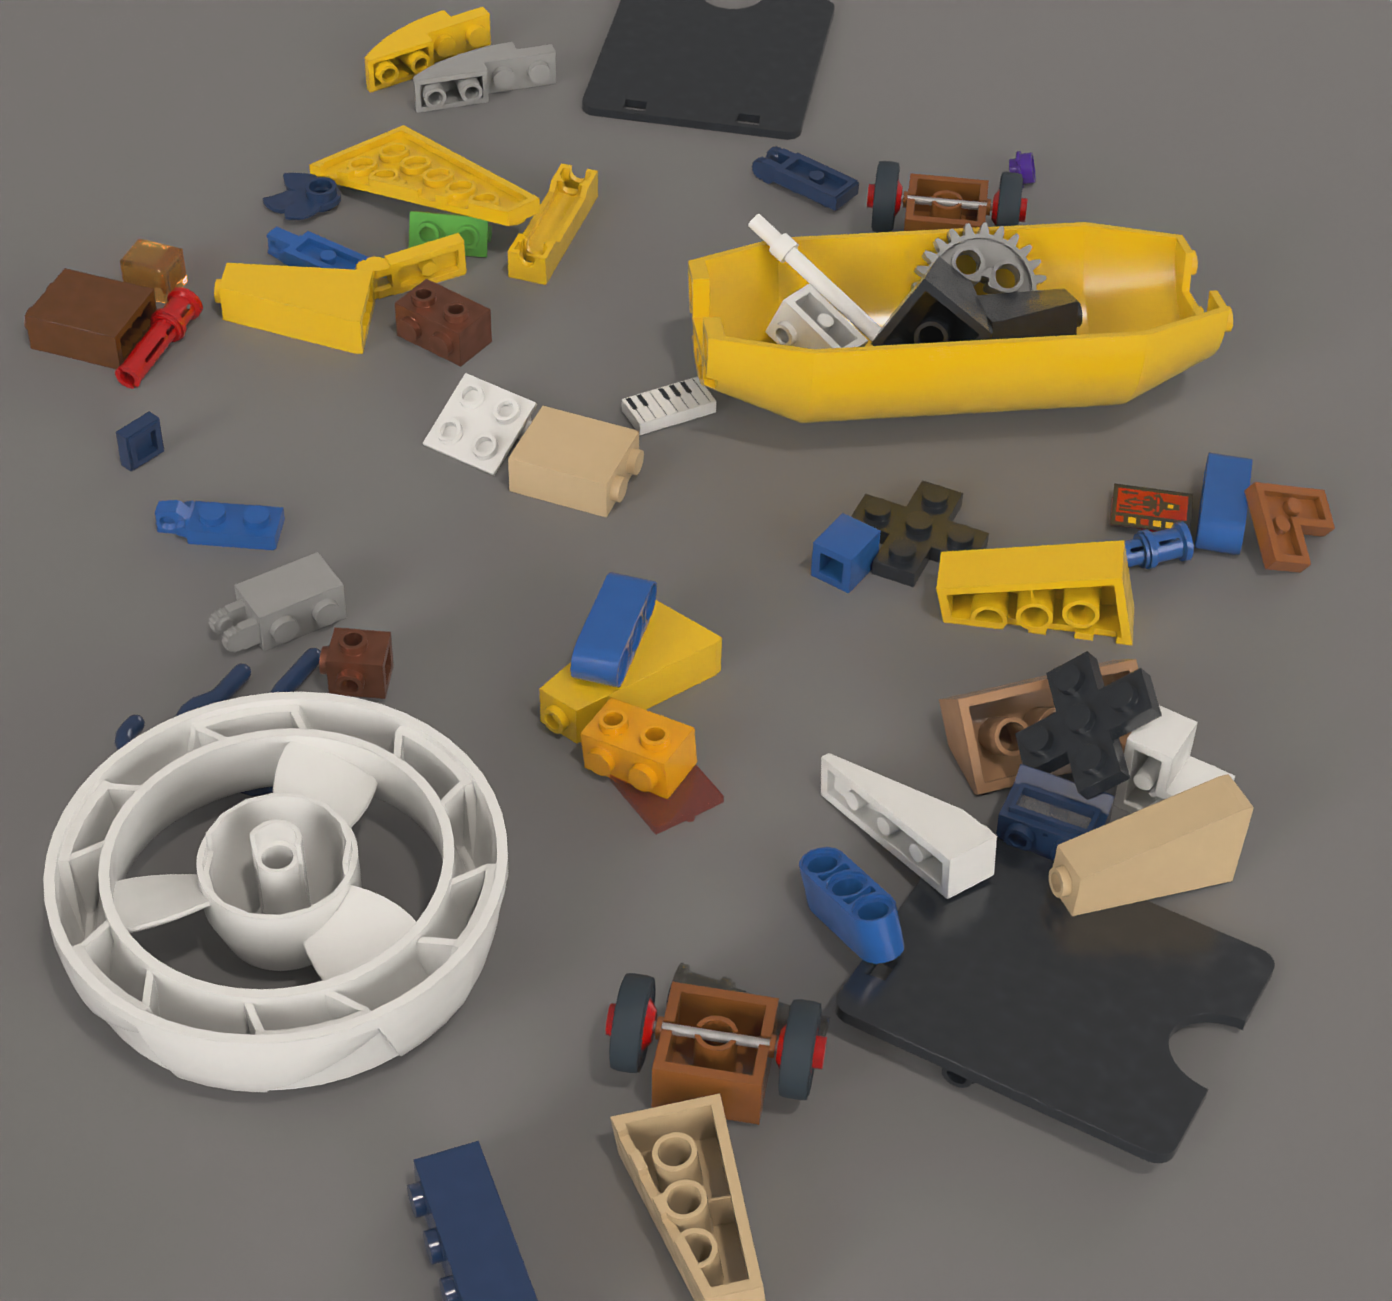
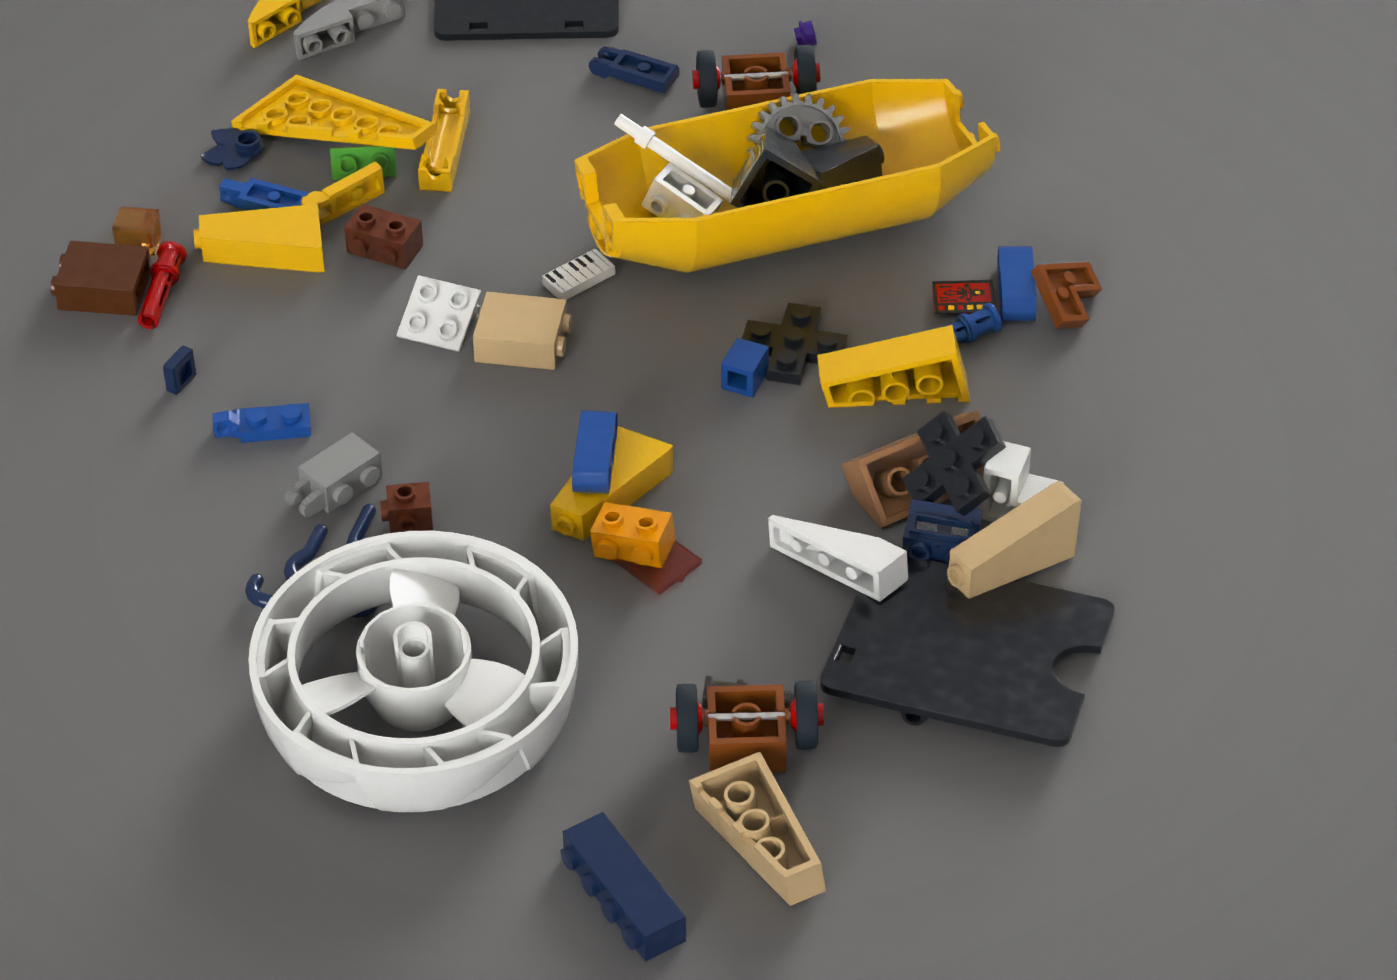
camera: 10 degrees left, 0 degrees up
(852, 905) = (815, 615): blue beam -> none

